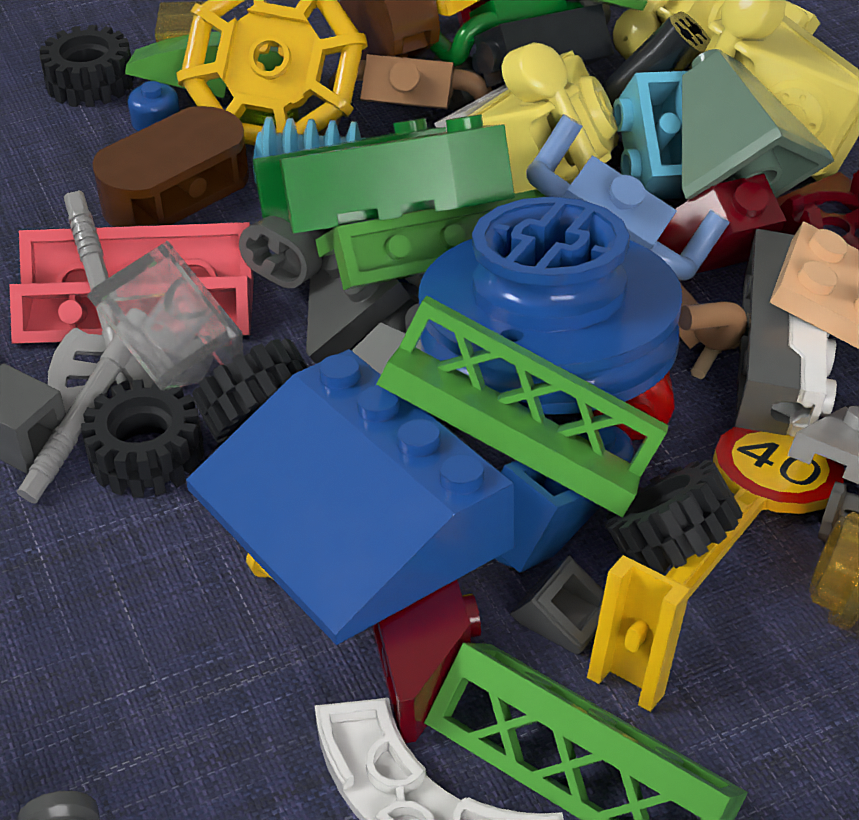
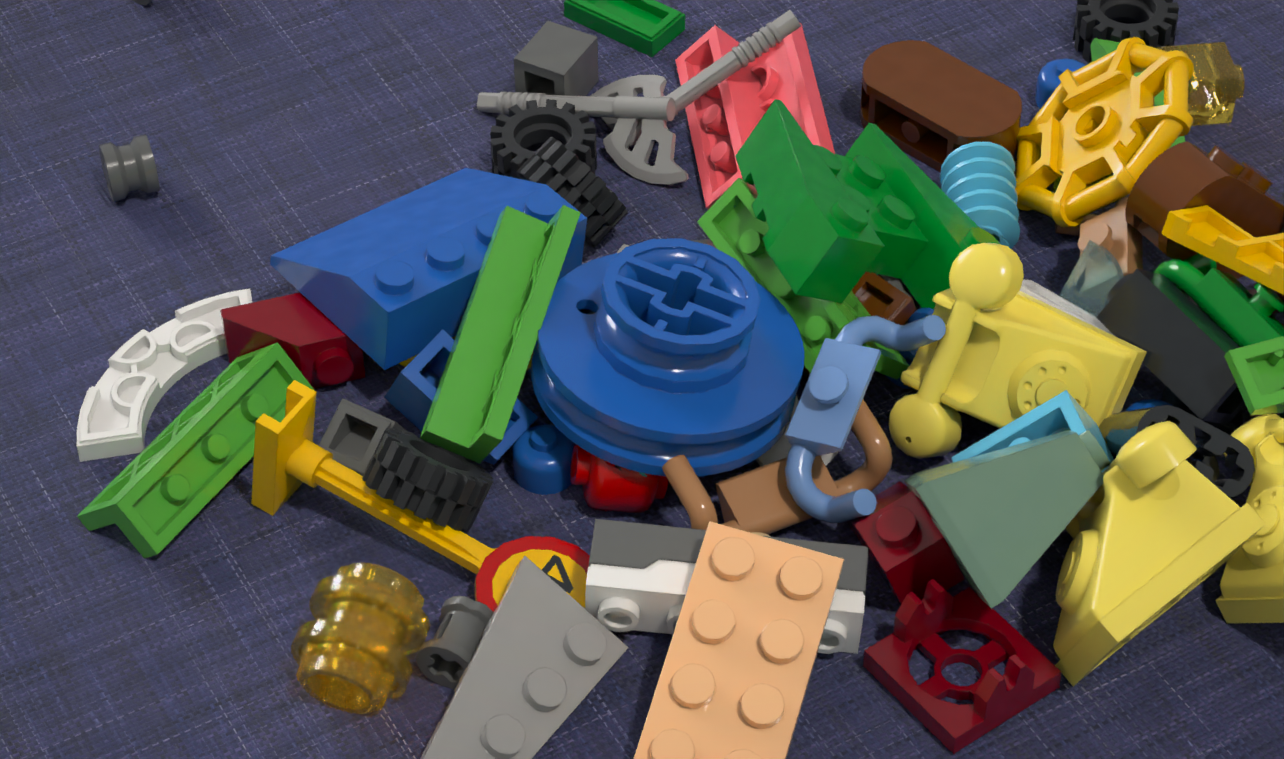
camera: 85 degrees right, 0 degrees up
(168, 319) = (652, 124): clear slope -> none
(455, 84) = (1092, 278): none -> clear light blue tile

